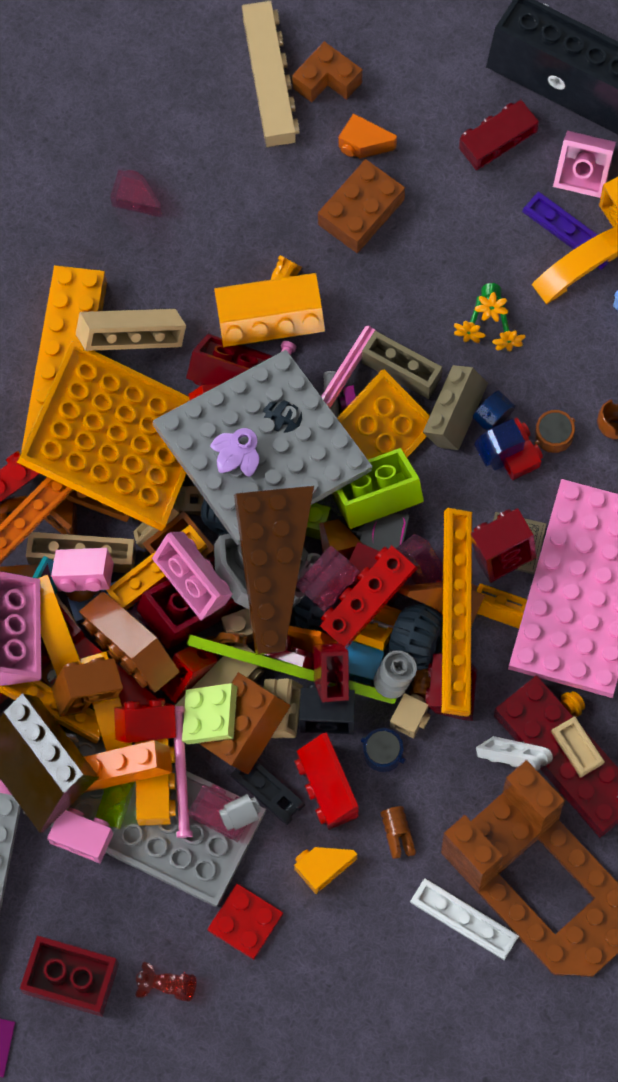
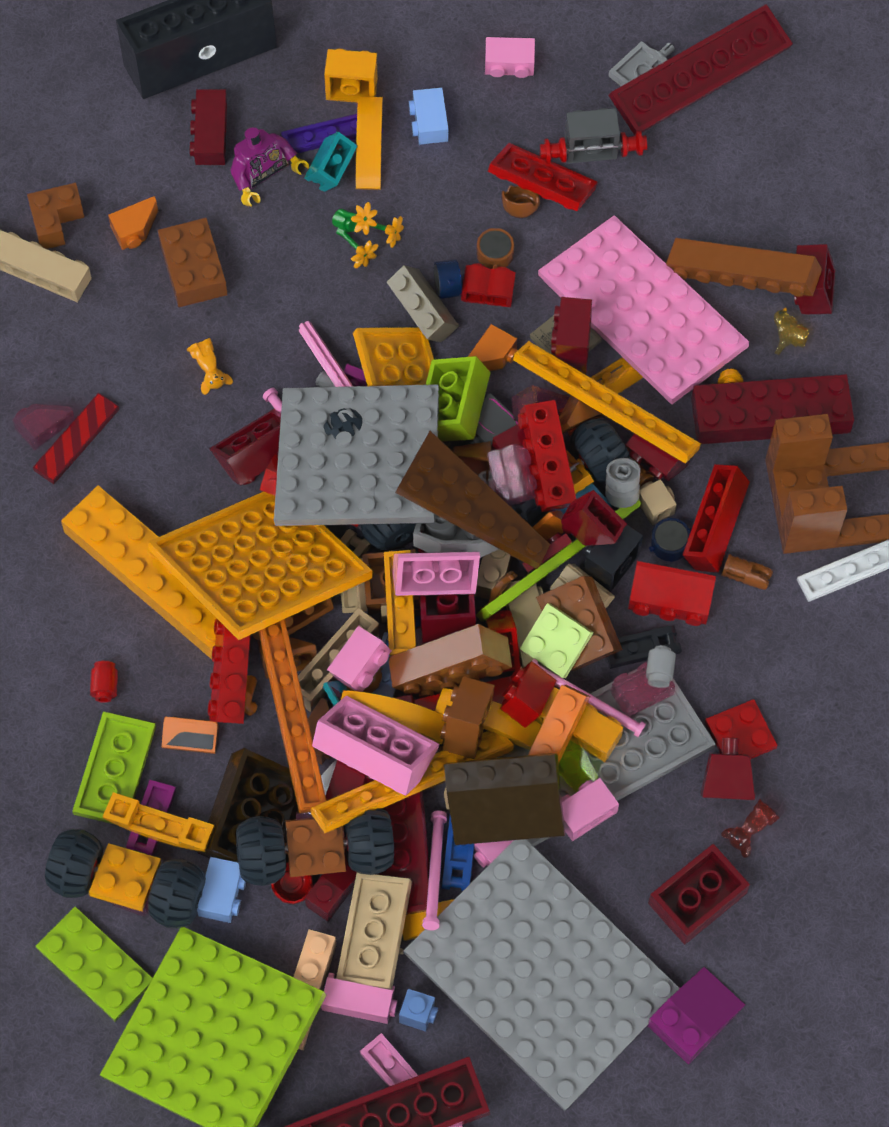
camera: 60 degrees left, 5 degrees down
(130, 329) = (169, 495): tan brick -> none
(143, 228) = (76, 438): none -> dark red tile
(194, 934) = (728, 773): none -> dark red torso
(234, 454) = (355, 473): lavender plate -> none
(269, 309) = (232, 384): light orange slope -> none
(323, 865) = (736, 644): light orange slope -> none
(402, 364) = (369, 311): dark tan brick -> none
(427, 774) = (716, 518): none -> red brick
(452, 490) = (495, 348): none -> orange slope
(494, 191) = (259, 158): none -> magenta torso
(499, 444) = (482, 288): clear blue brick -> none
(513, 752) = (747, 440): white plate -> none
(535, 247) = (329, 162): none -> teal brick
(577, 746) = (776, 391): tan tile -> none
(584, 164) = (285, 84): bright pink slope -> none

